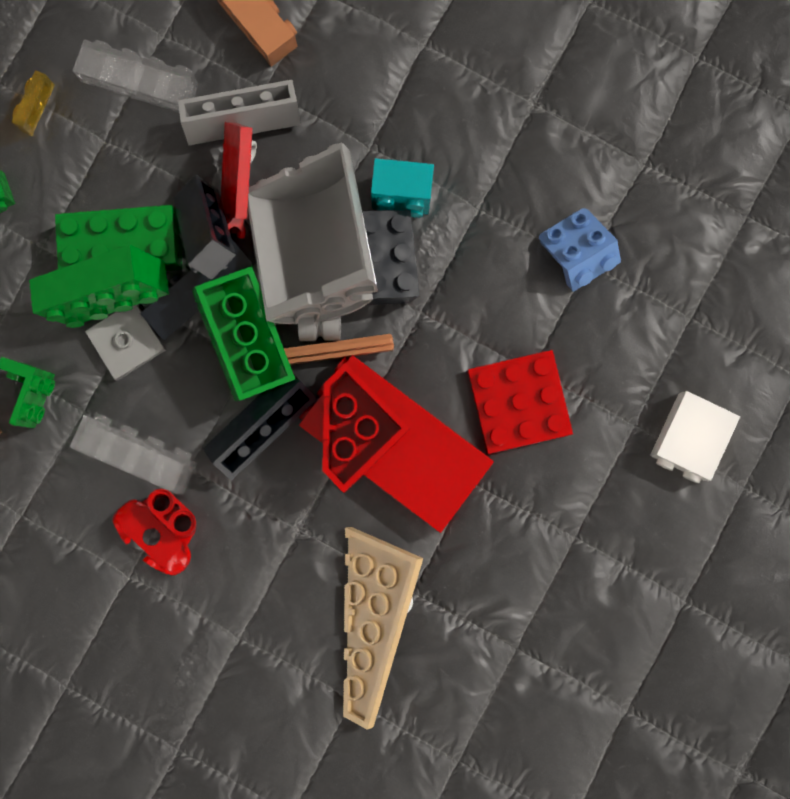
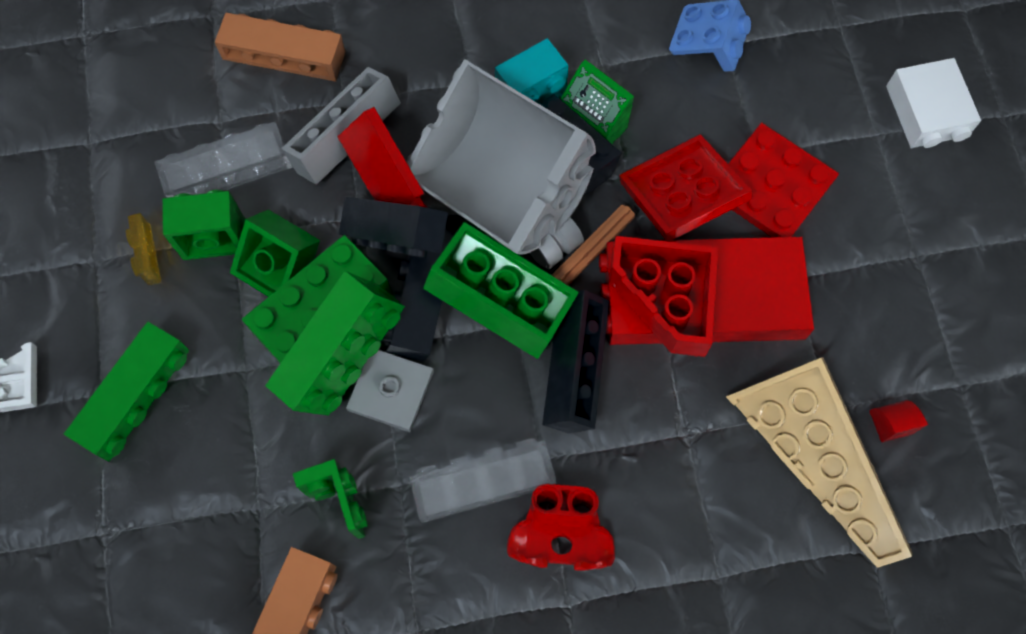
camera: 40 degrees left, 15 degrees down
(82, 119) = (202, 224): none -> green brick
(119, 176) = (271, 252): none -> green slope
(434, 243) = (599, 101): none -> slope
(445, 357) = (685, 187): none -> red plate
(445, 636) = (897, 420): none -> red brick

